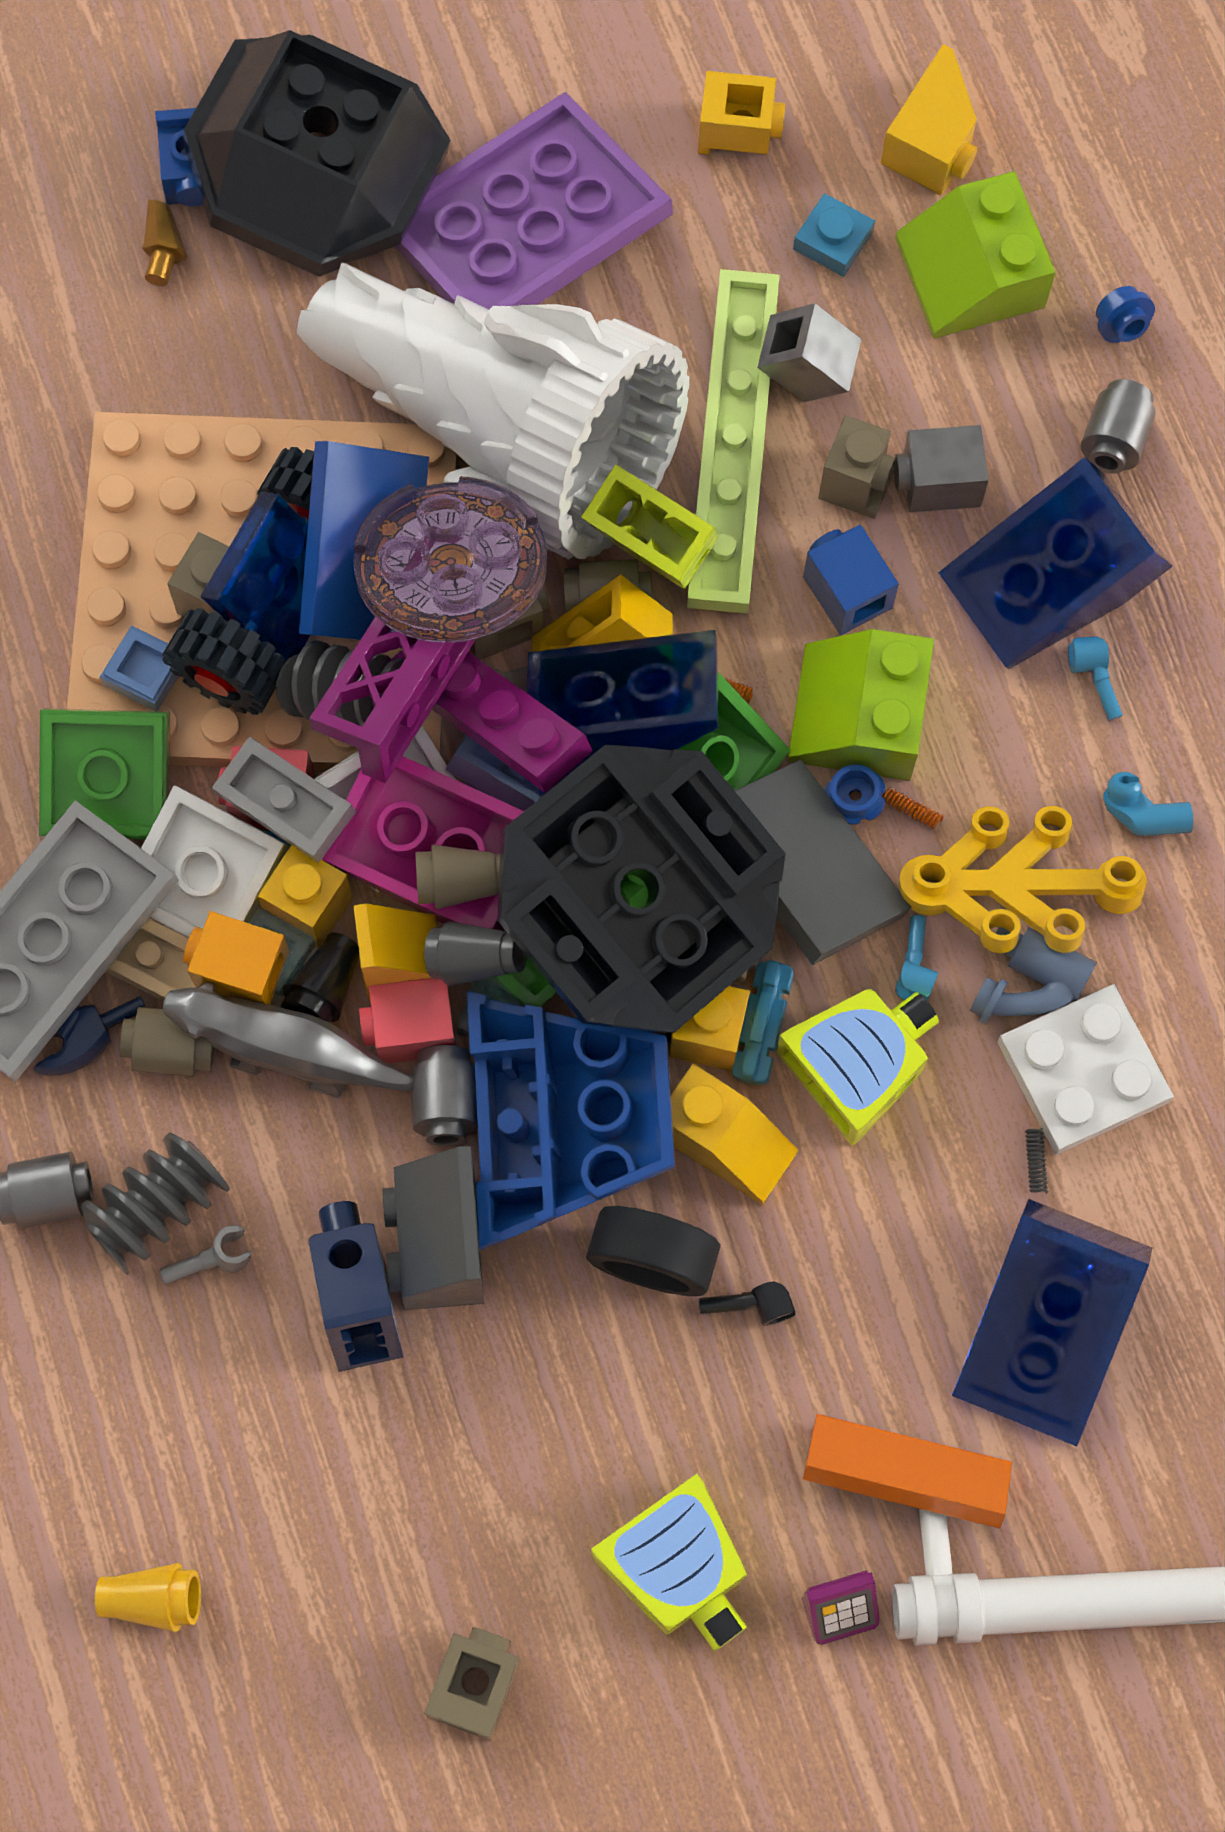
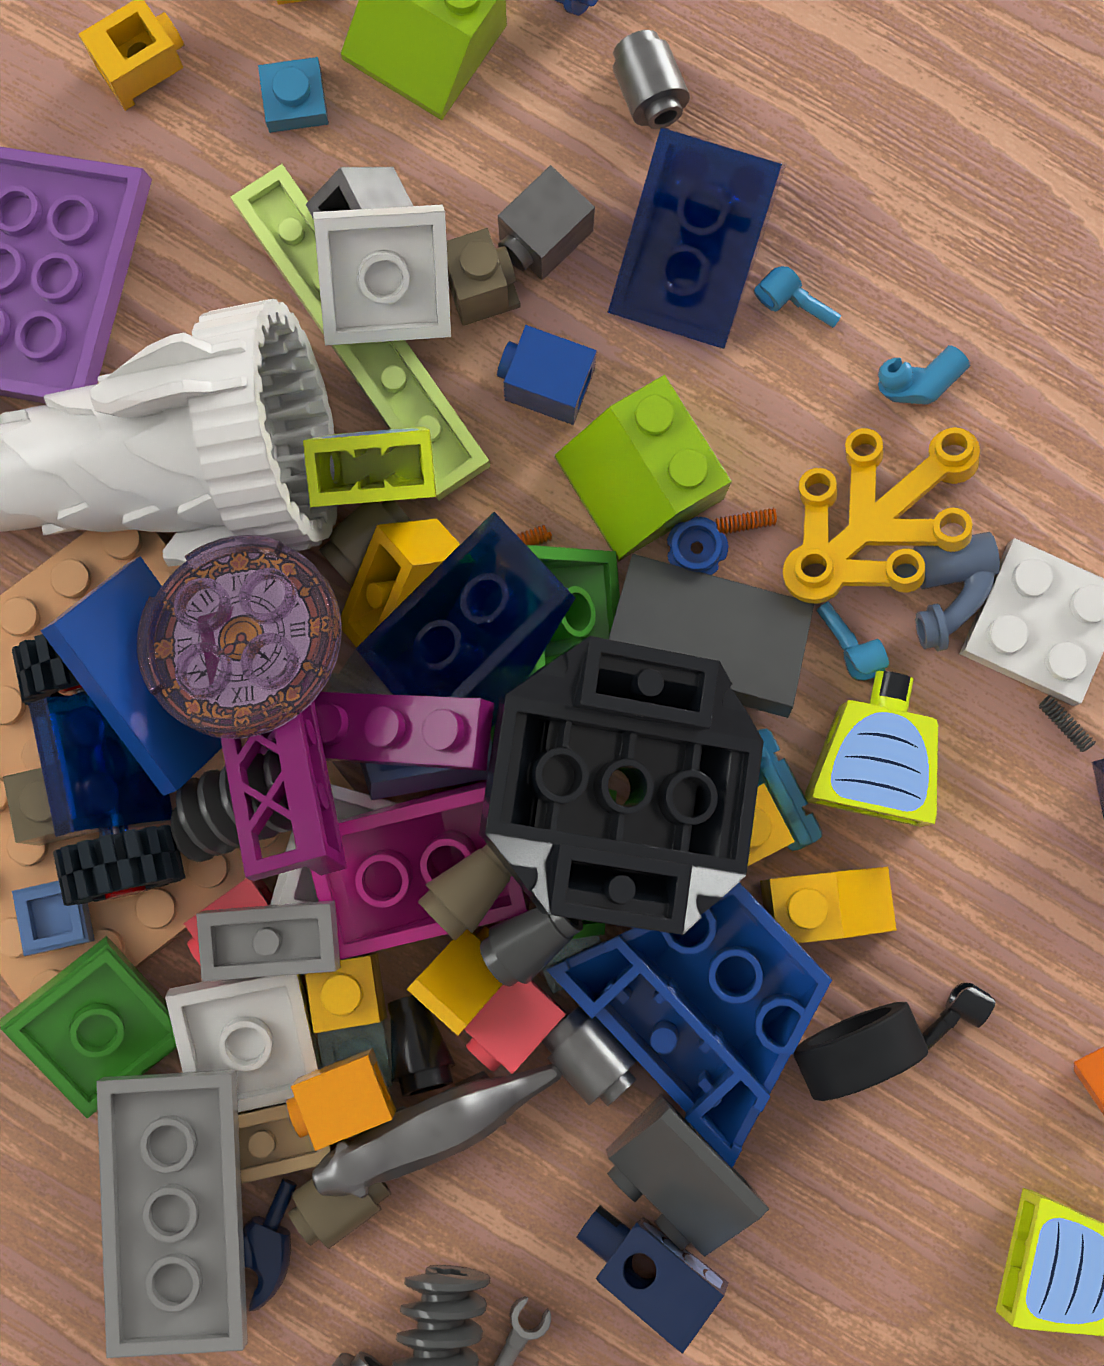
camera: 40 degrees left, 10 degrees up
(781, 403) = (383, 274): none -> white plate

